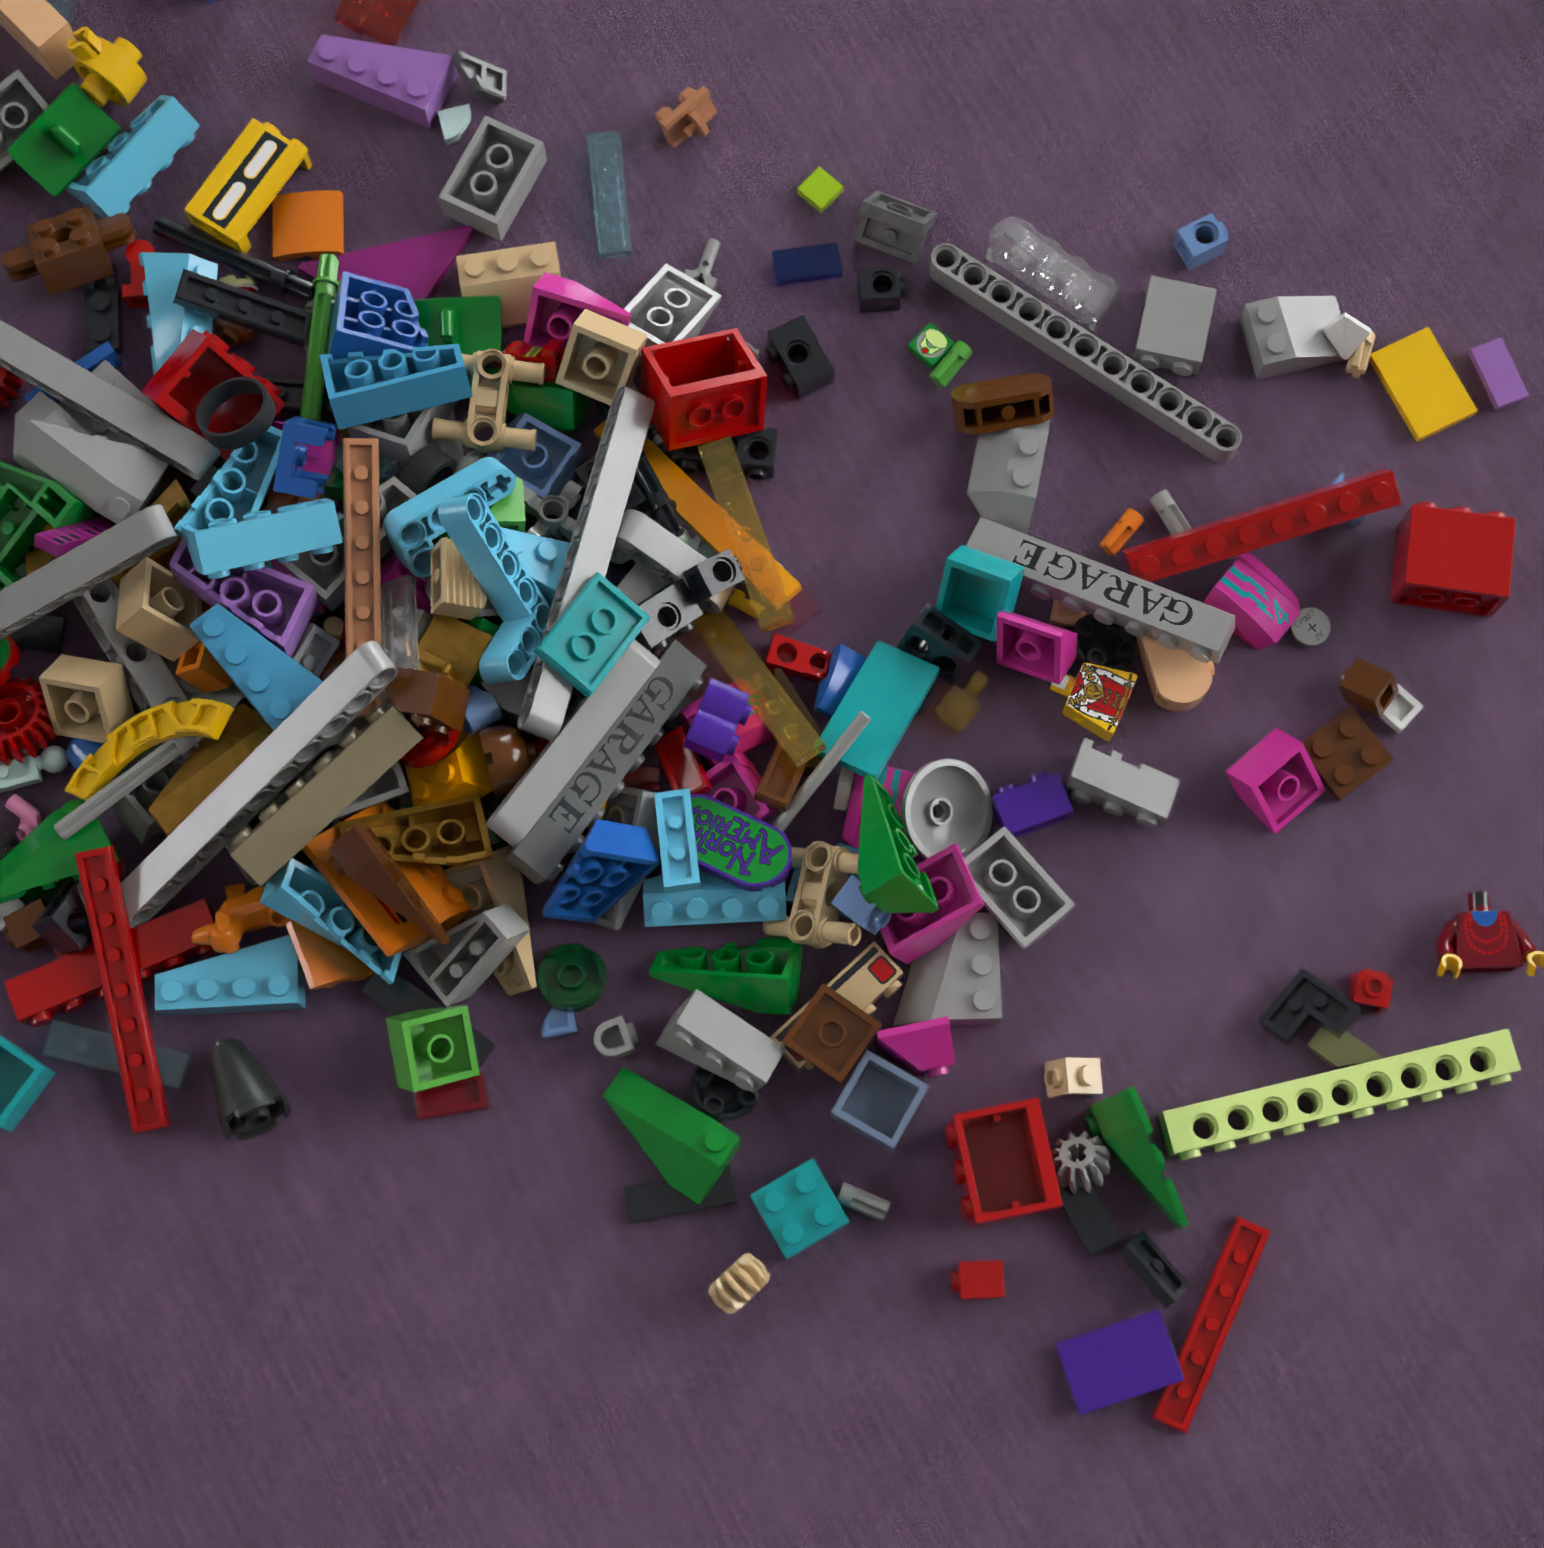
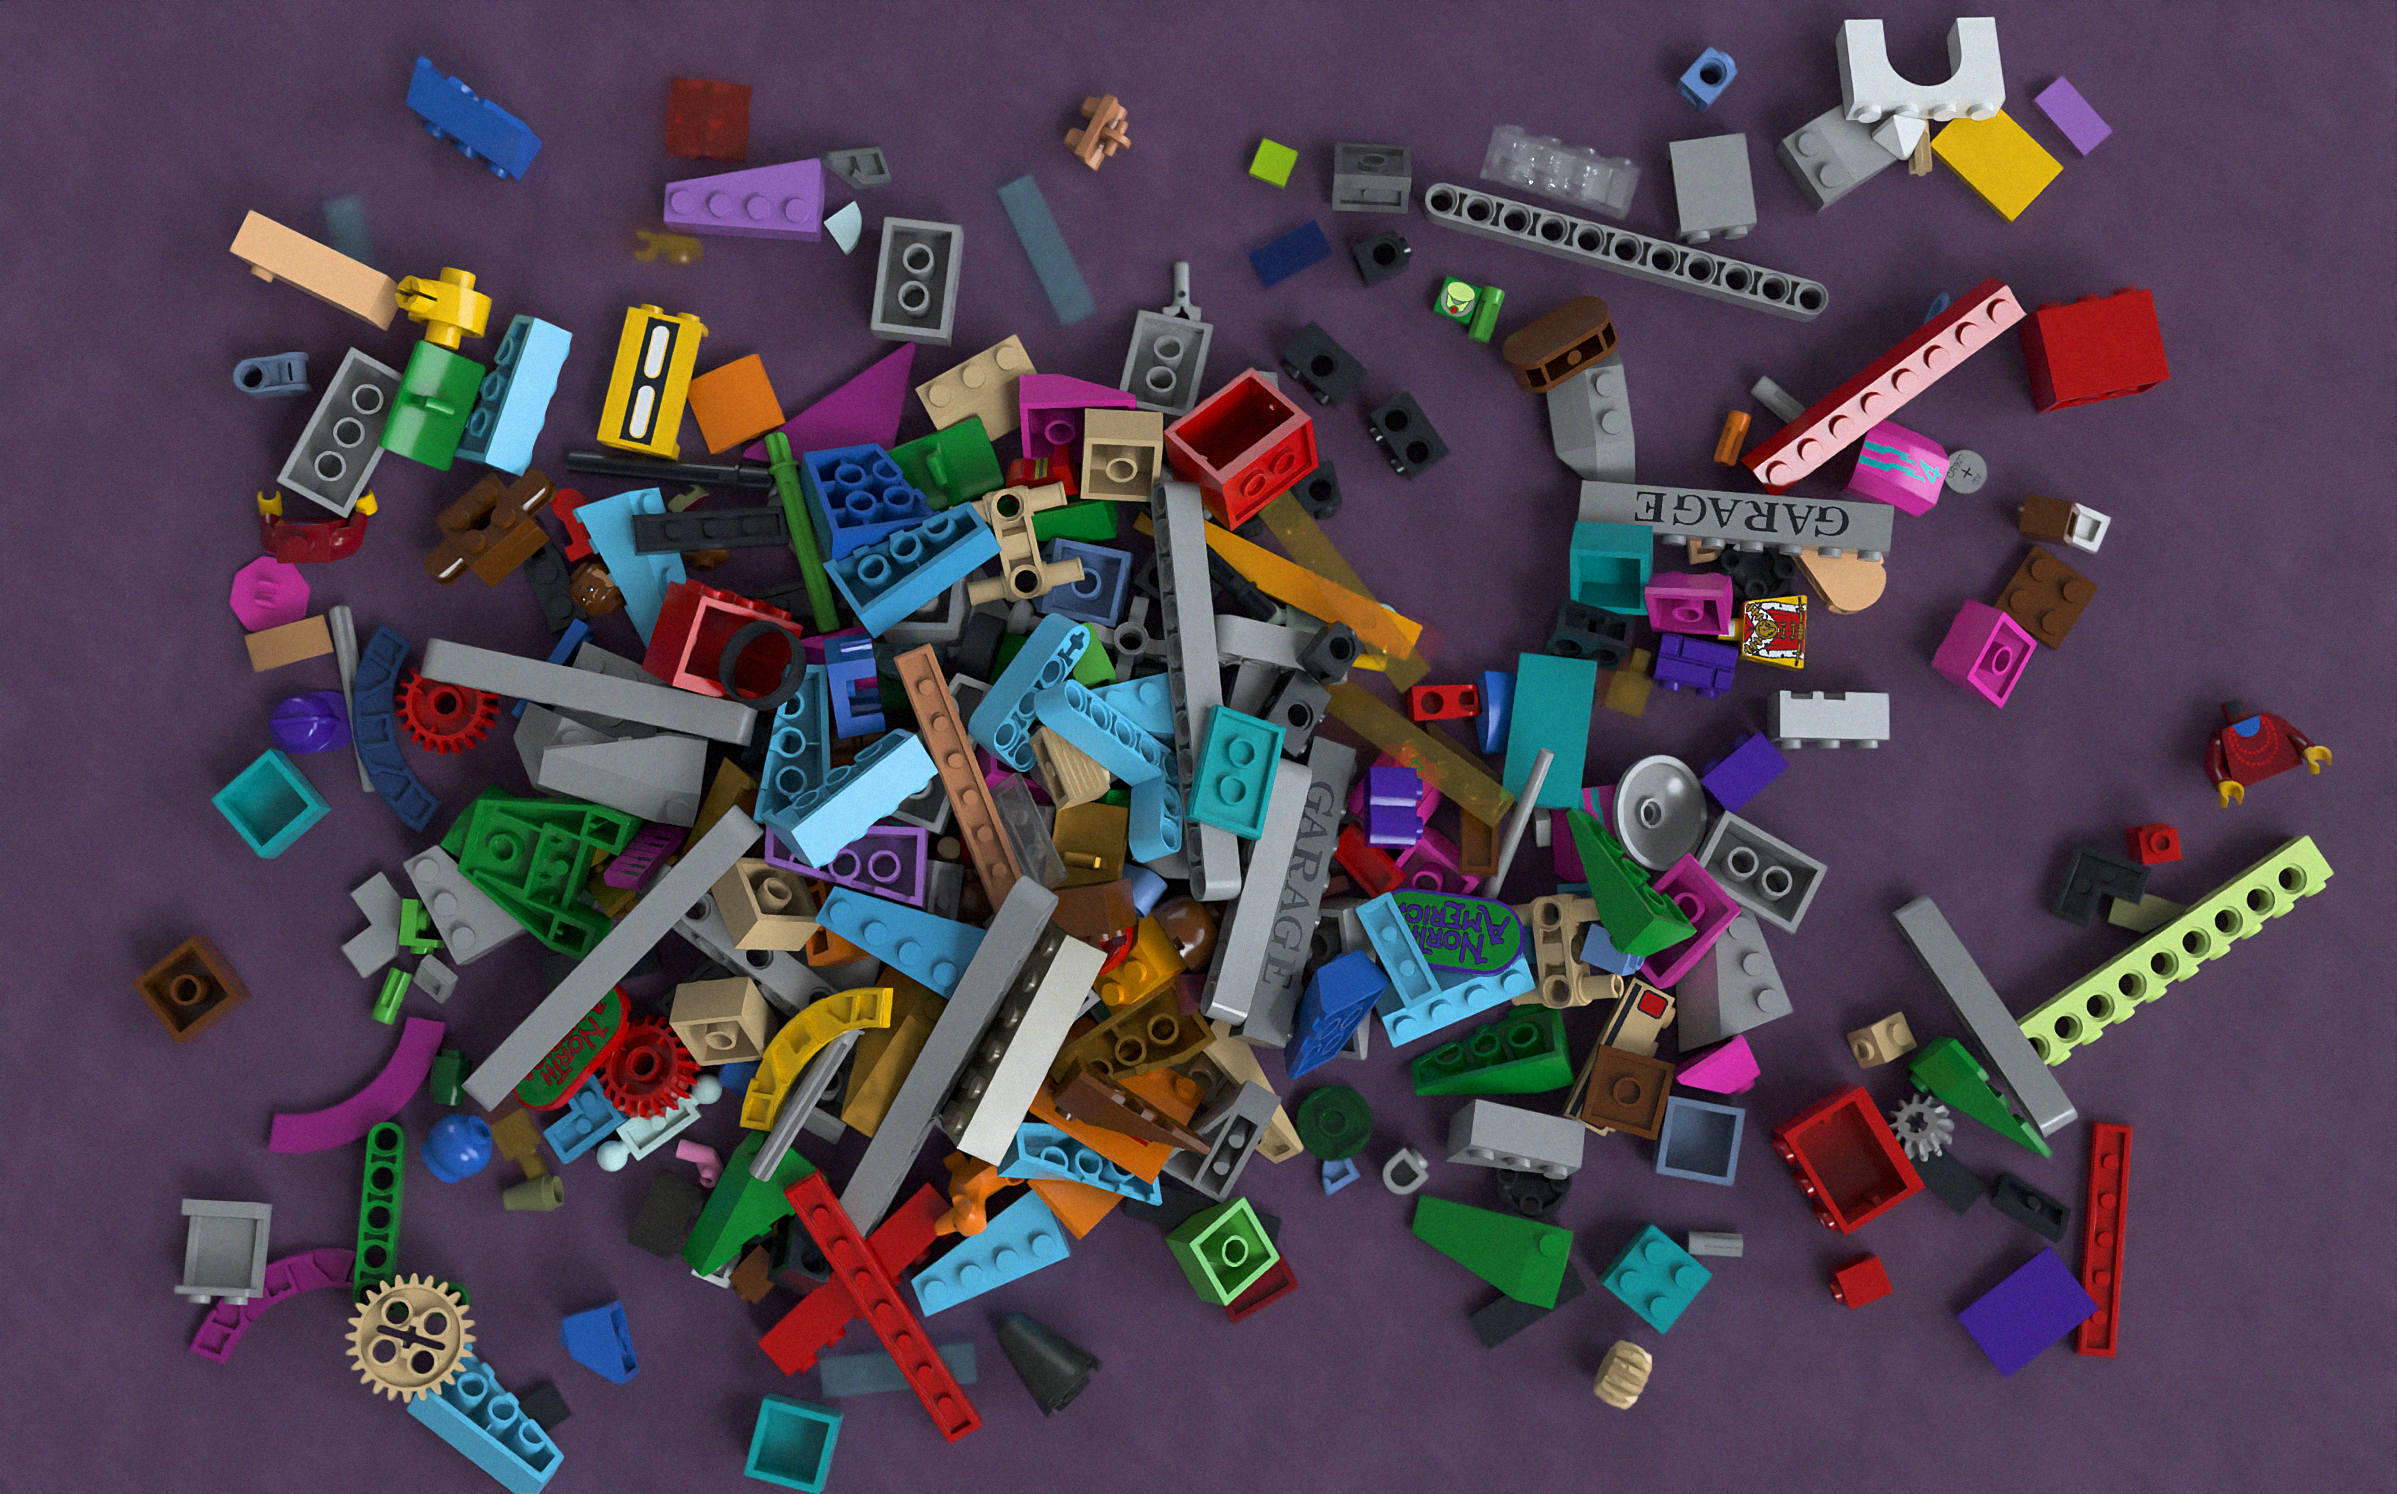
camera: 15 degrees left, 10 degrees up
(133, 328) = (595, 590): none -> reddish brown head
(312, 91) = (677, 248): none -> clear yellow plate
(483, 808) = (1189, 991): none -> clear pink tile
(855, 435) = (1417, 432): none -> black brick
(1021, 703) = (1693, 665): none -> dark purple brick
(1168, 1082) = (1984, 1016): none -> light grey beam
(1338, 290) = (1877, 92): none -> white arch

